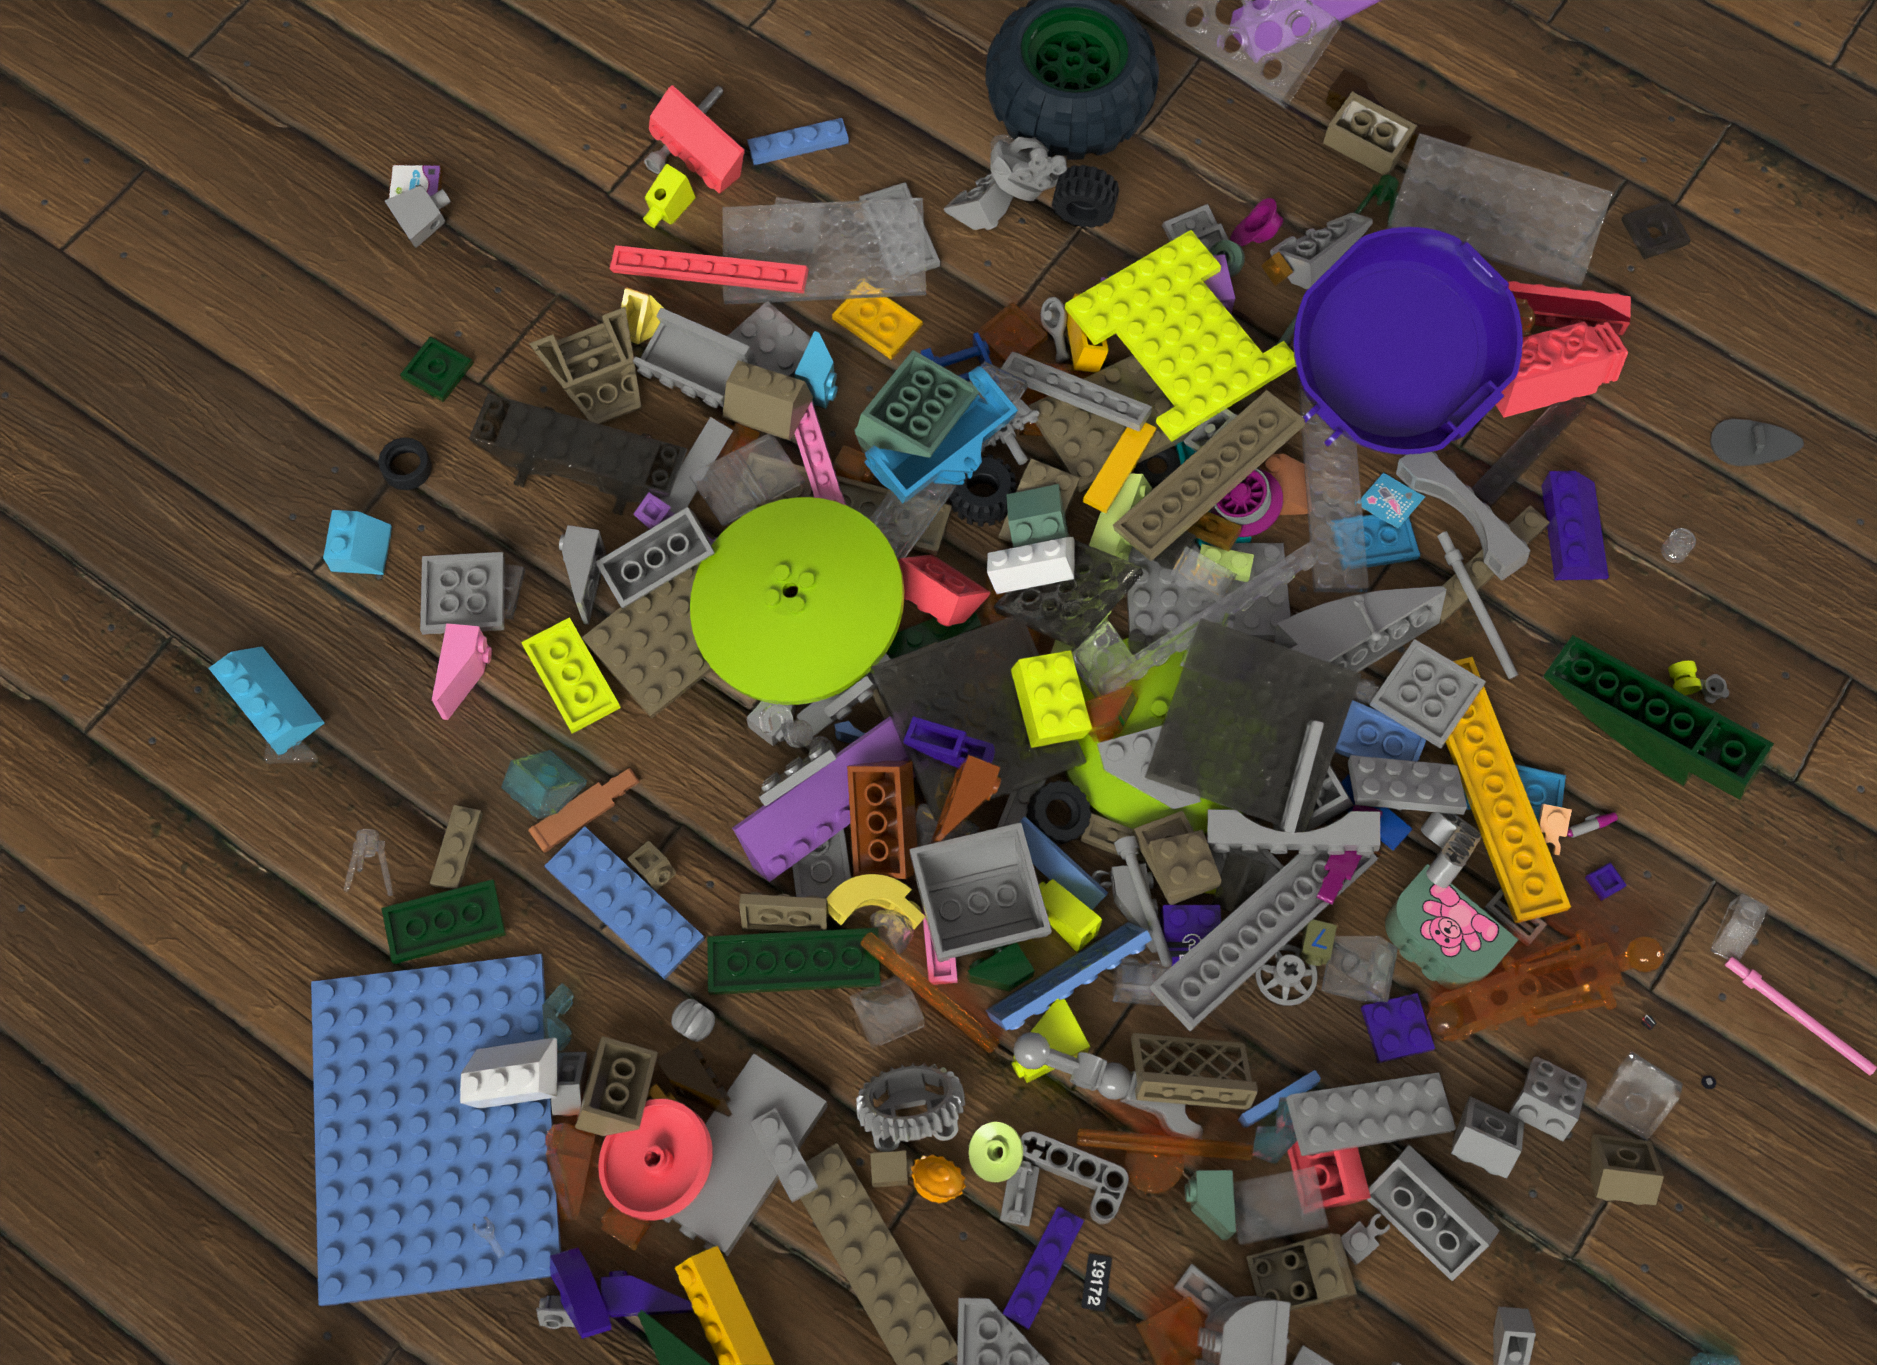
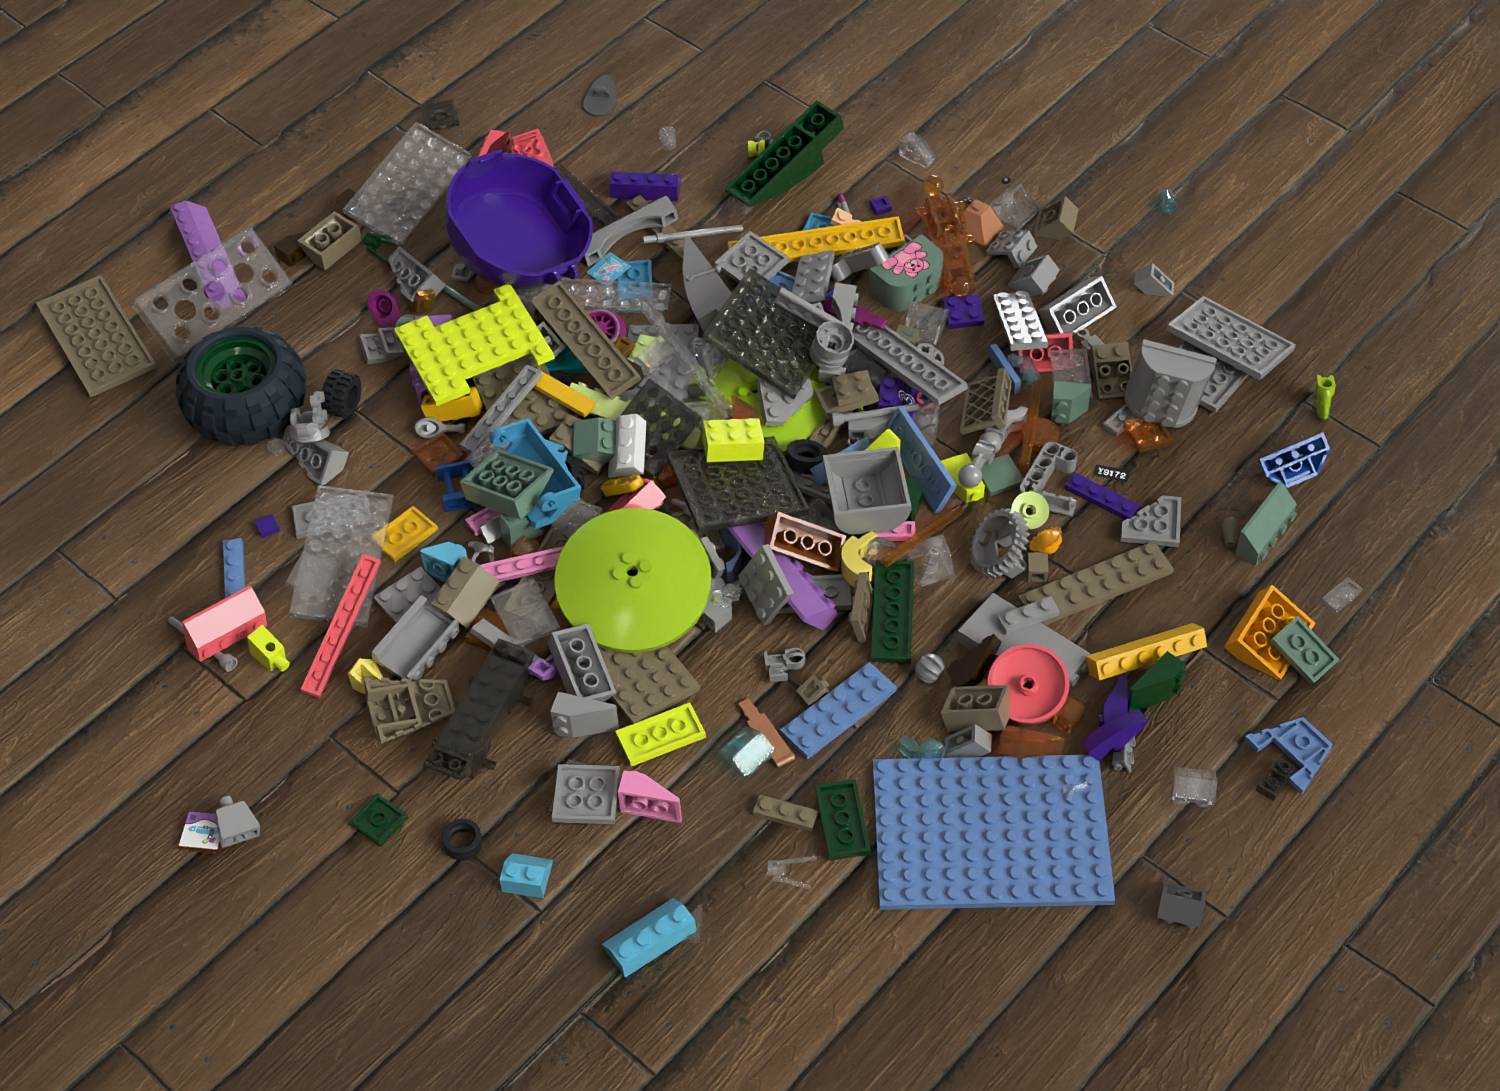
camera: 80 degrees left, 15 degrees down
(510, 1074) = (963, 763): white slope -> none
(697, 812) = (779, 663): none -> light grey piece
(847, 413) = (481, 547): none -> light grey piece
(873, 162) = (267, 525): none -> dark purple tile
(946, 743) = (762, 491): dark purple slope -> none
(969, 568) = (622, 485): none -> yellow beam
(971, 786) = (803, 485): dark orange slope -> none
(1067, 1106) = (1001, 475): none -> sand green tile
(1240, 798) = (831, 345): none -> light grey wheel
(1589, 1042) = (982, 223): none -> nougat slope
(1753, 980) = (948, 150): bright pink bar -> none

